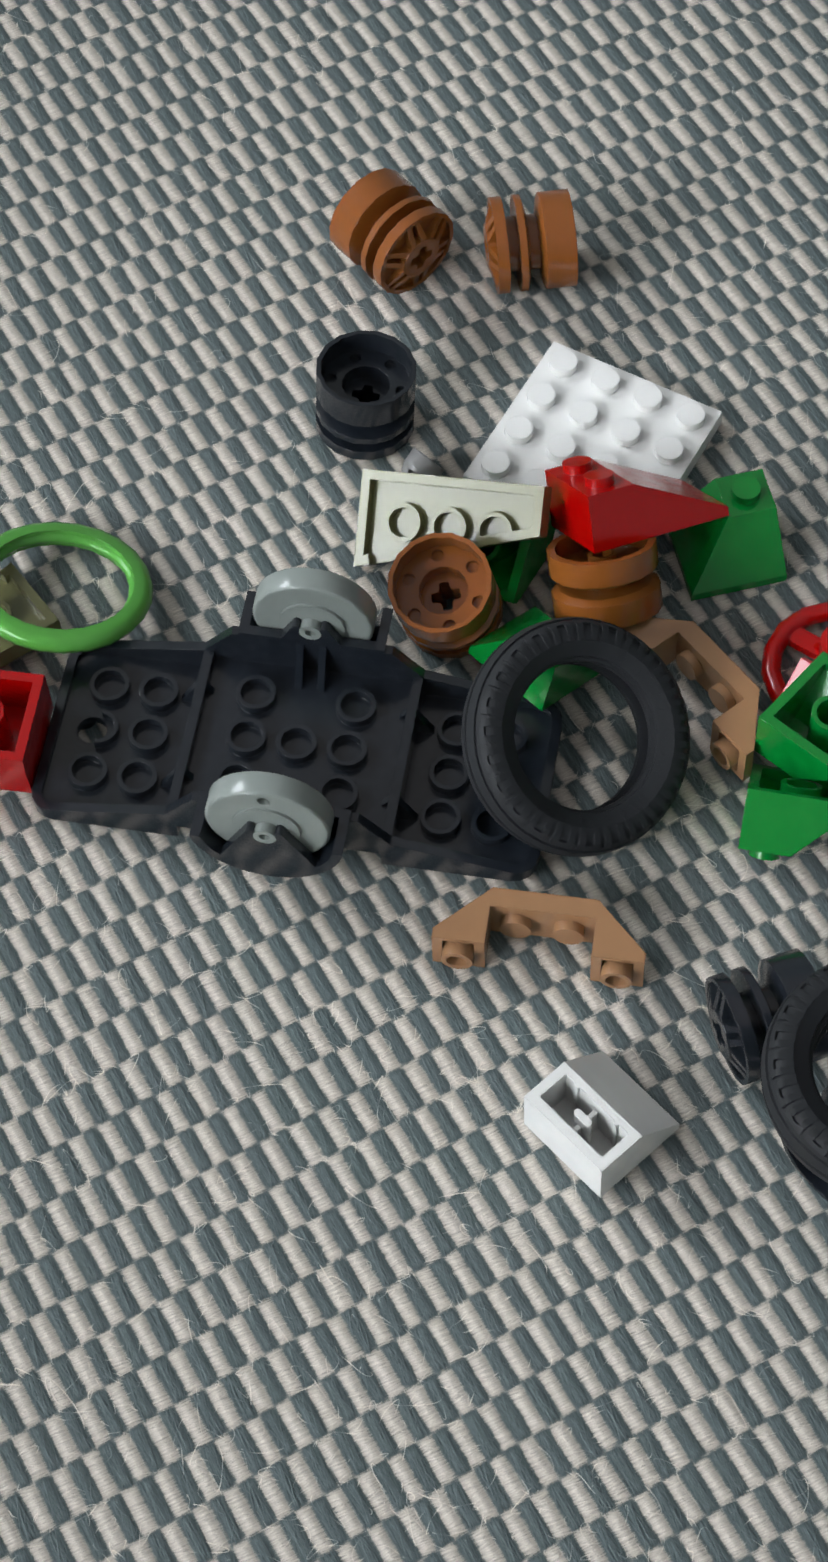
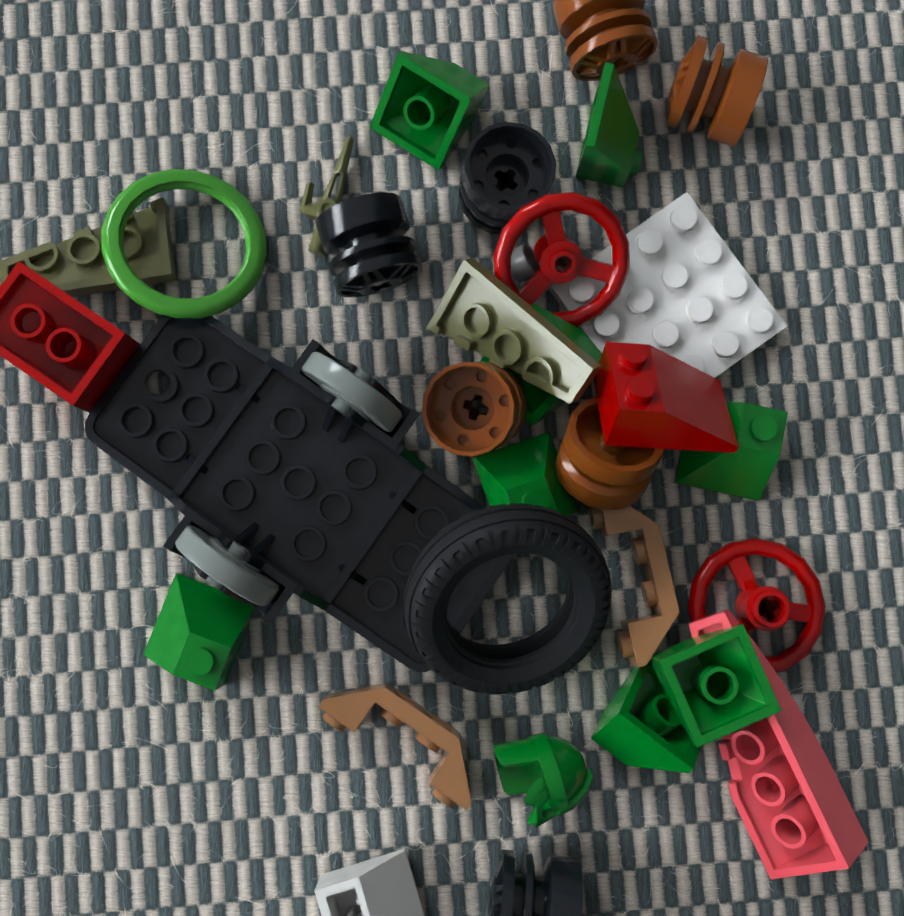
camera: 20 degrees right, 25 degrees up
(193, 508) = (313, 210): none -> olive piece
(248, 374) = (427, 106): none -> green slope
(257, 504) = (368, 244): none -> black wheel
(259, 947) = (198, 632): none -> green slope
(448, 321) = (610, 136): none -> green slope
(461, 434) = (557, 244): none -> red piece
(700, 900) = (547, 771): none -> green helmet

